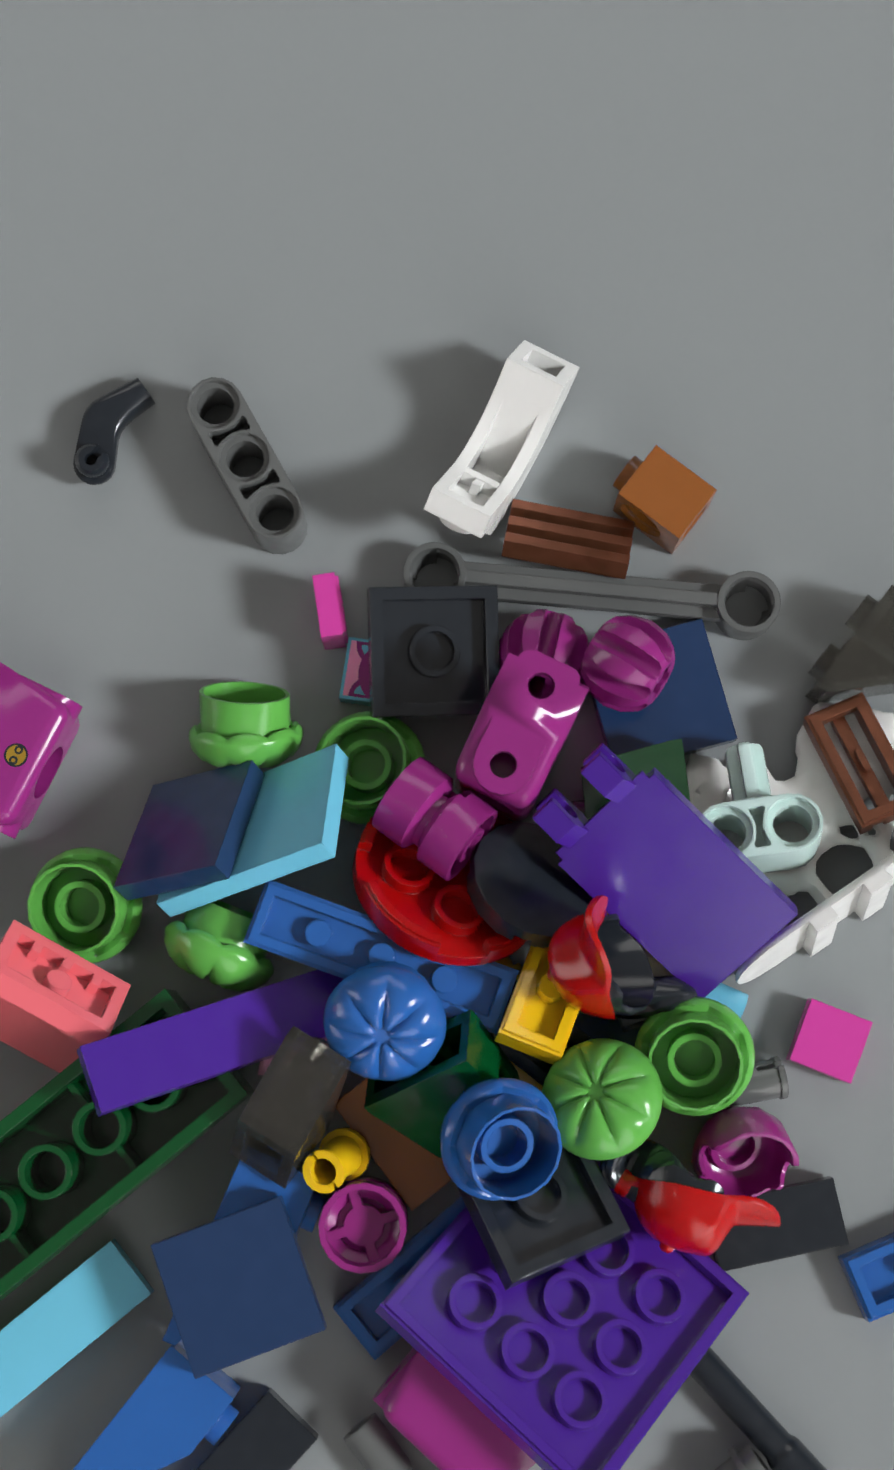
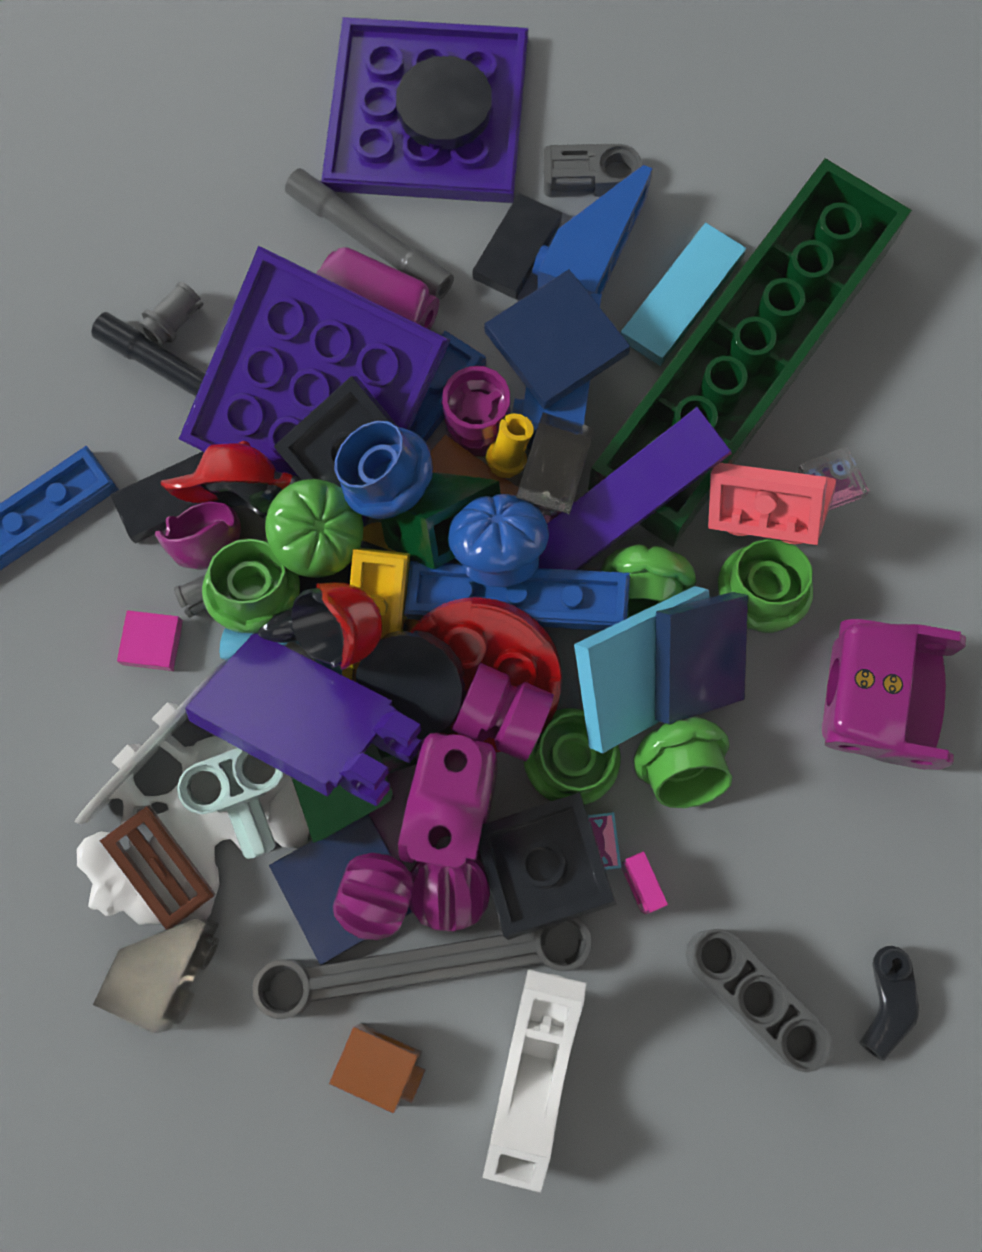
camera: 170 degrees right, 5 degrees down
(568, 539) = (454, 1015): copper tile -> none

